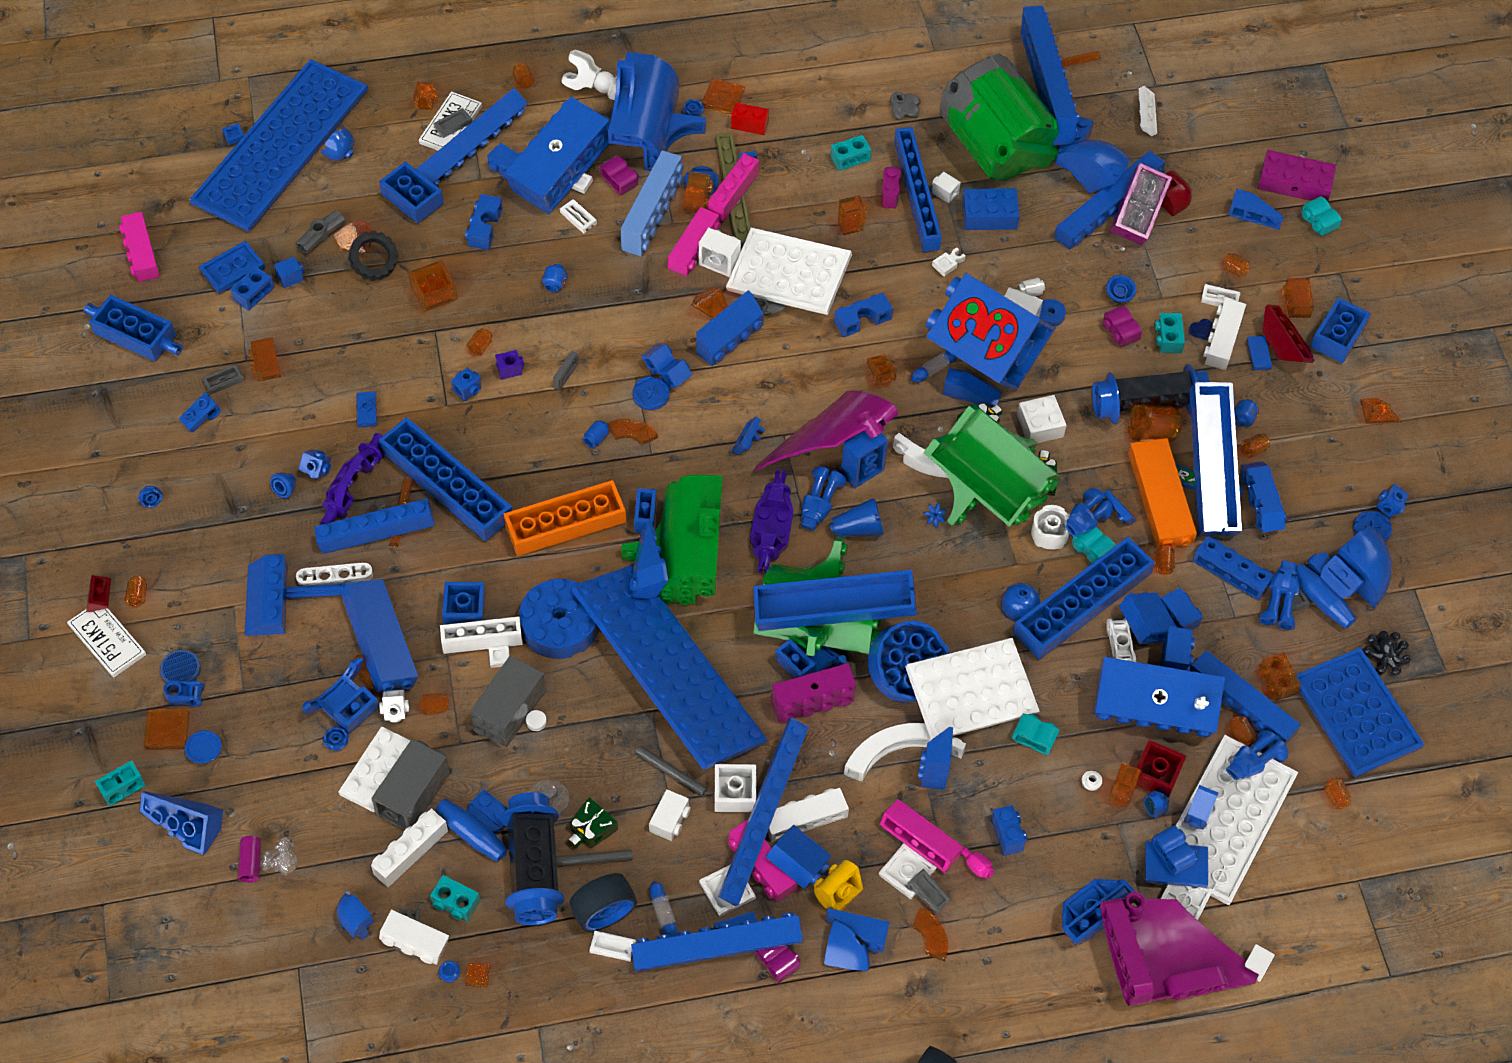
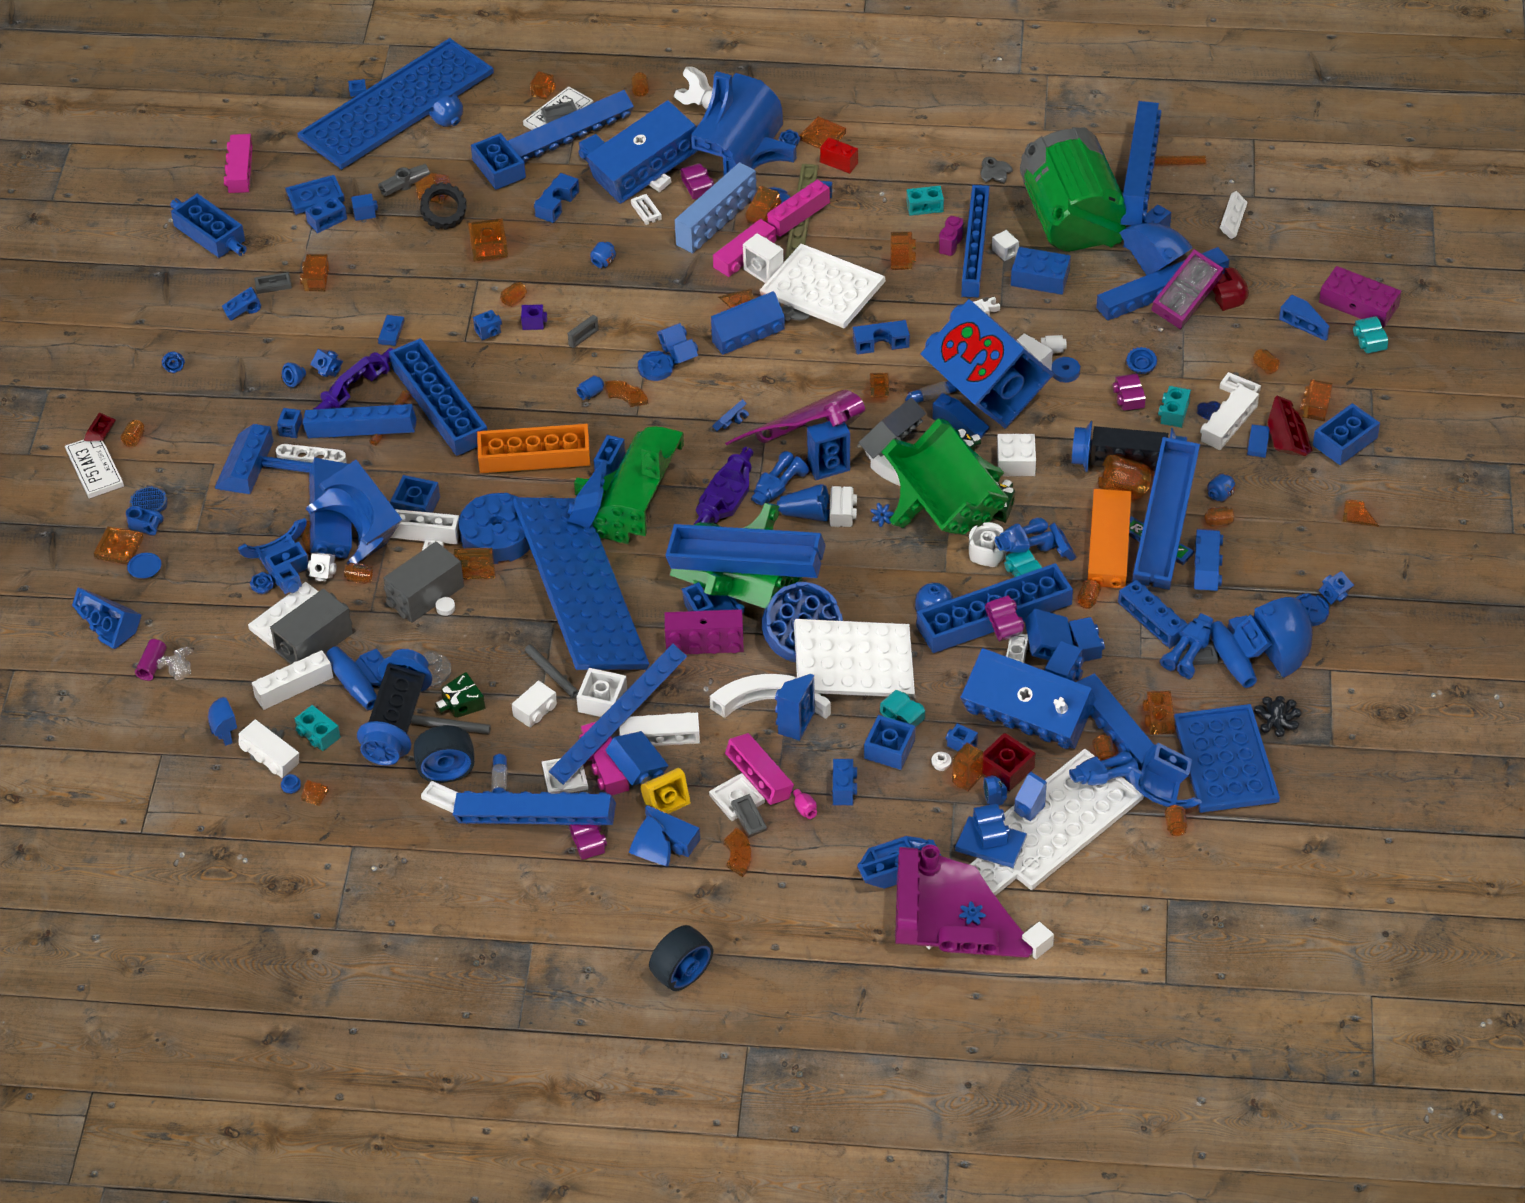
camera: 20 degrees right, 10 degrees down
(120, 783) = (61, 577): teal brick -> none
(300, 542) = (289, 422): none -> blue brick
(364, 730) = (289, 583): none -> blue brick
(430, 638) = (363, 503): none -> blue piece
(555, 666) = (476, 562): none -> clear orange plate
(894, 515) = (841, 506): none -> white brick
(920, 421) = (895, 425): none -> dark grey brick
(1038, 774) = (889, 742): none -> blue brick
(1104, 611) = (1004, 618): none -> magenta brick
(1104, 753) = (961, 735): none -> blue brick
(1186, 953) = (972, 913): none -> blue plant
(1310, 751) = (1162, 776): none -> blue piece

